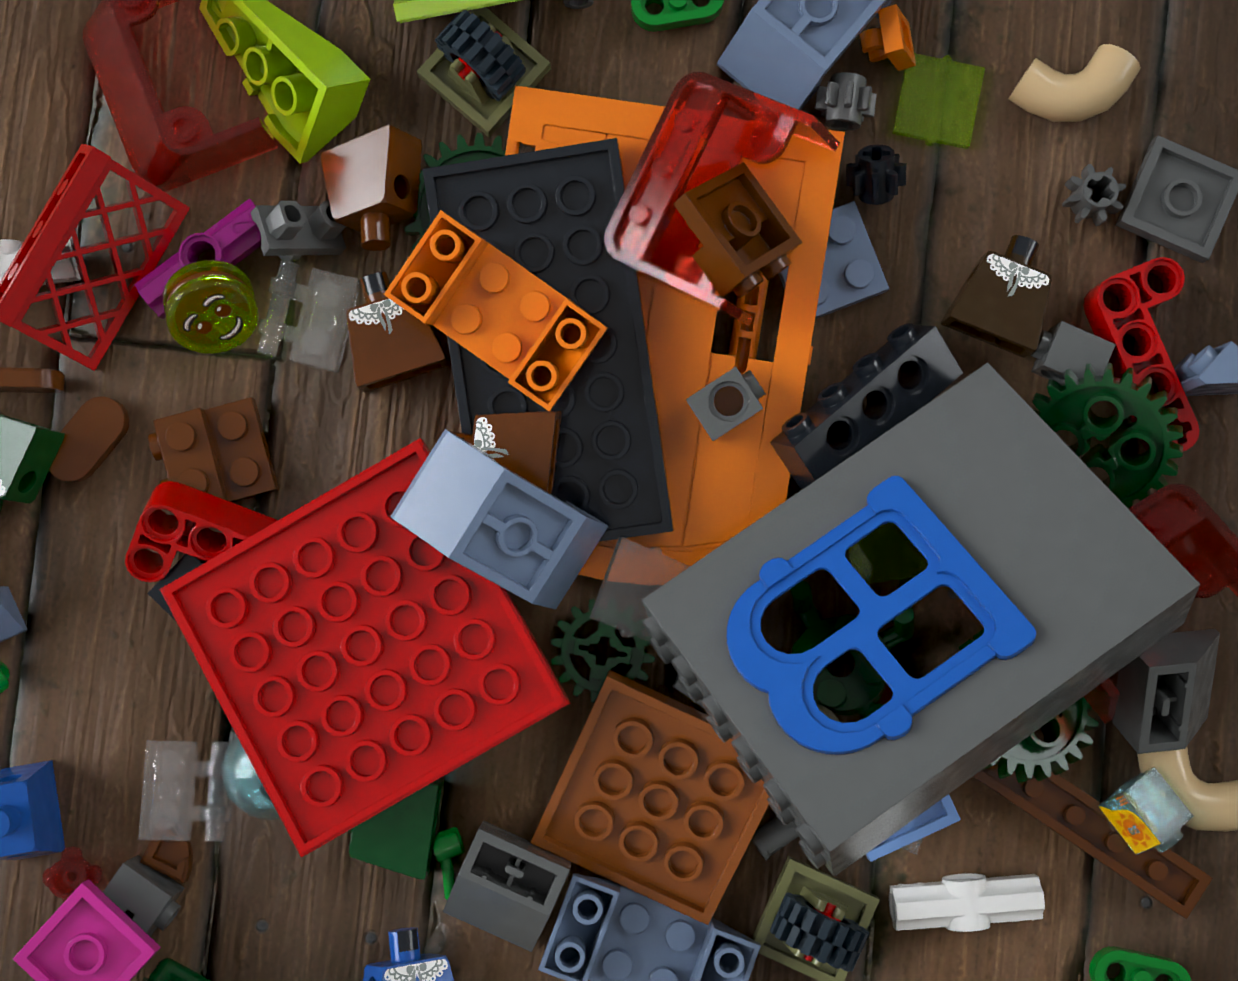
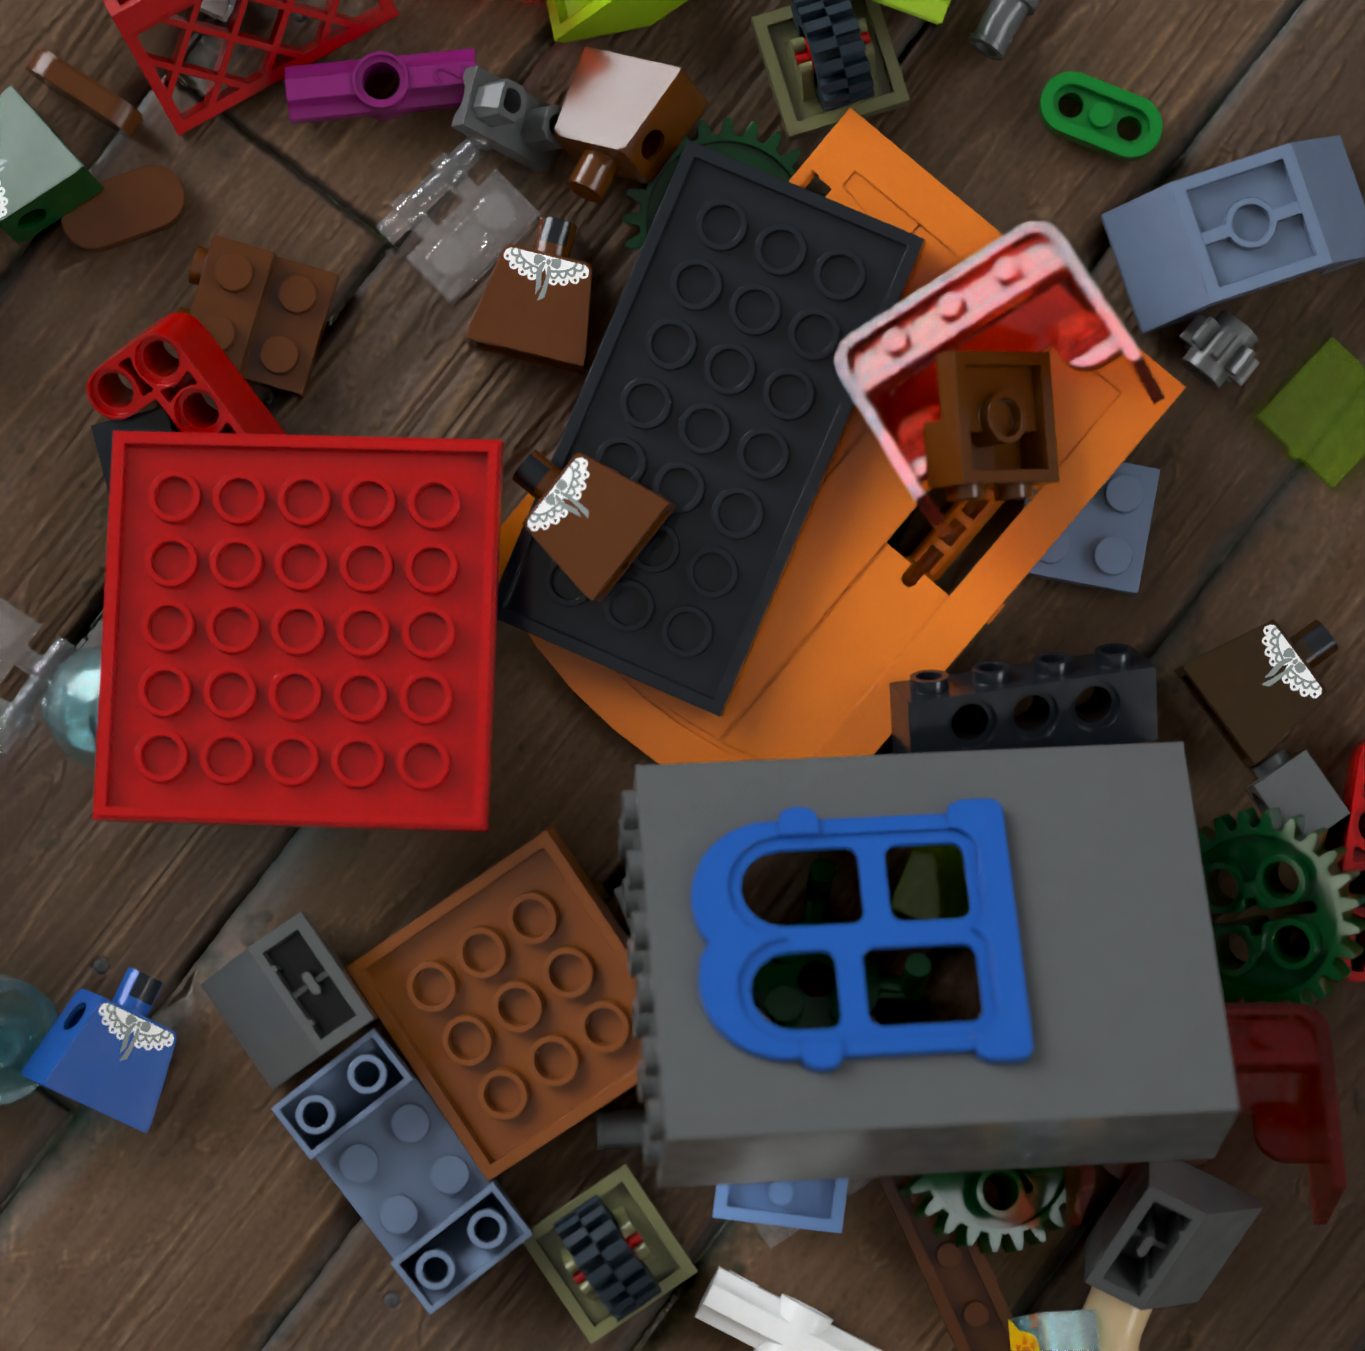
camera: 25 degrees right, 0 degrees up
(210, 306) = (355, 146): clear neon green head -> none
(401, 835) = (209, 865): dark green torso -> none
(448, 845) = (249, 914): green hand -> none
(496, 310) = (673, 350): orange slope -> none
(497, 522) = (531, 587): sand blue slope -> none
(571, 645) = (578, 779): dark green gear -> none
(628, 579) = (639, 735): clear piece -> none
(704, 407) = (839, 599): dark grey brick -> none
(876, 174) = (1202, 454): black gear -> none
(890, 40) = (1316, 311): orange tile -> none

